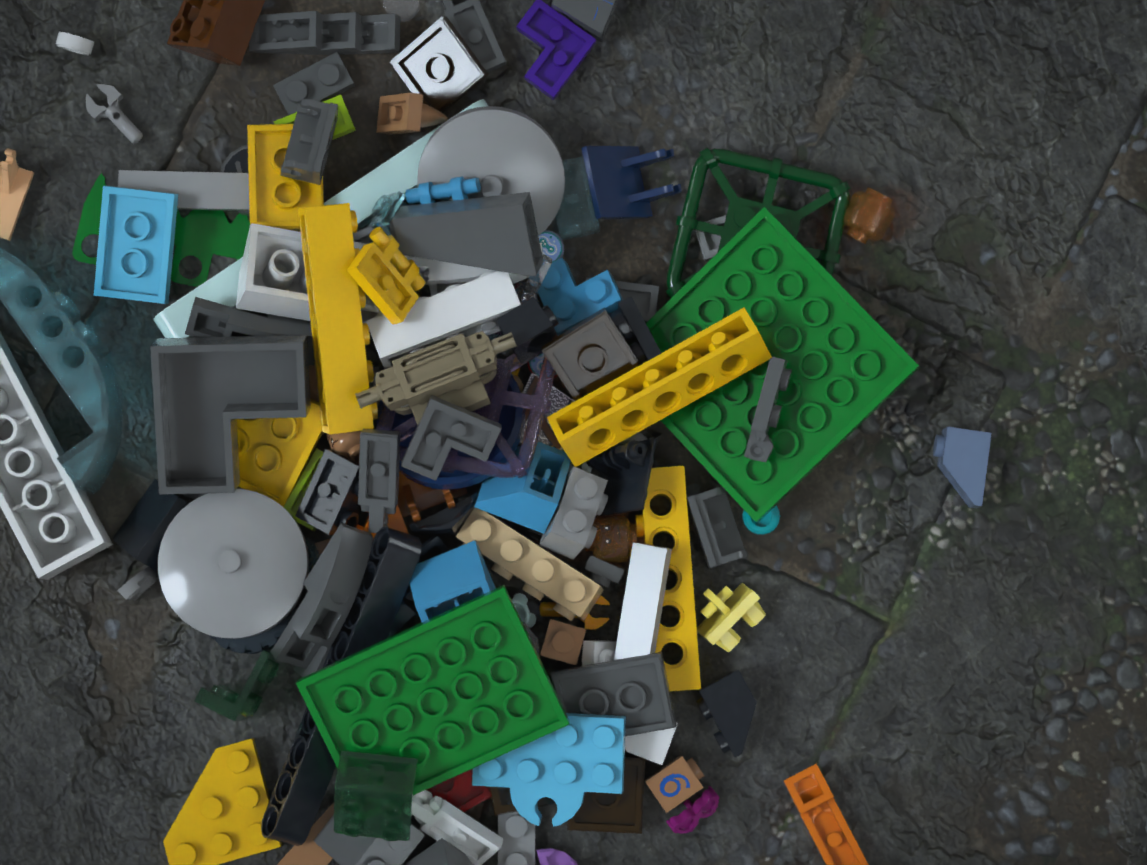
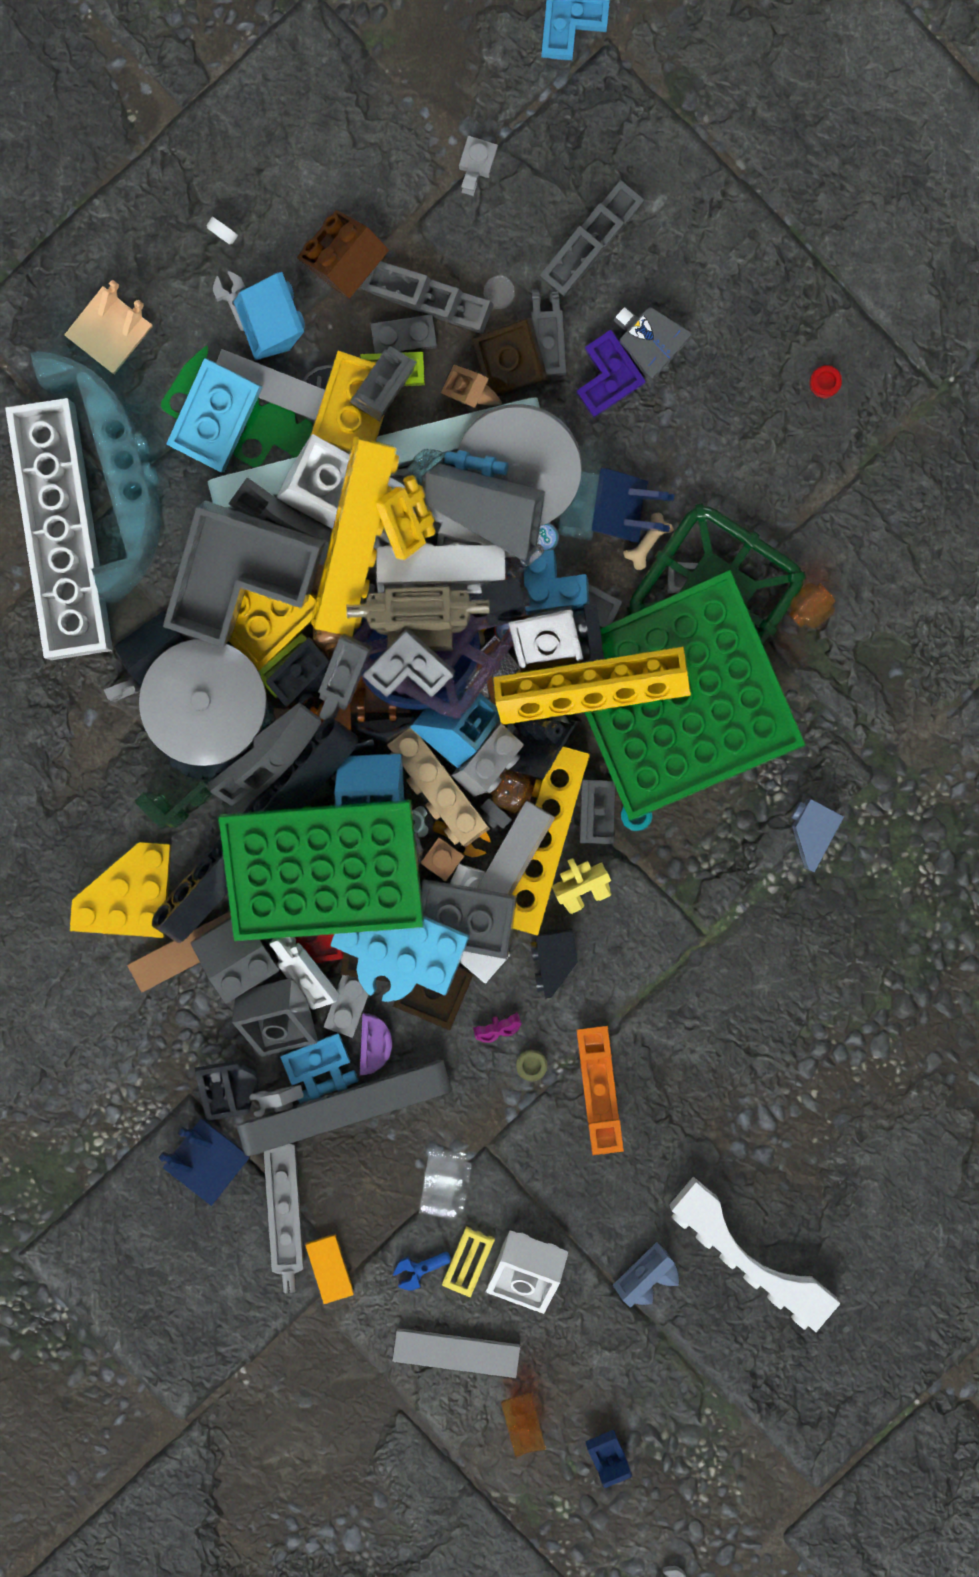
camera: 15 degrees right, 5 degrees up
(159, 115) = (269, 316): none -> dark azure slope
(374, 795) = (249, 927): clear green bracket -> none
(658, 228) = (639, 554): none -> tan piece
(675, 782) = (490, 1000): medium nougat brick -> none
(747, 840) = (531, 1065): none -> olive tile
(767, 412) = (671, 737): dark grey hinge -> none

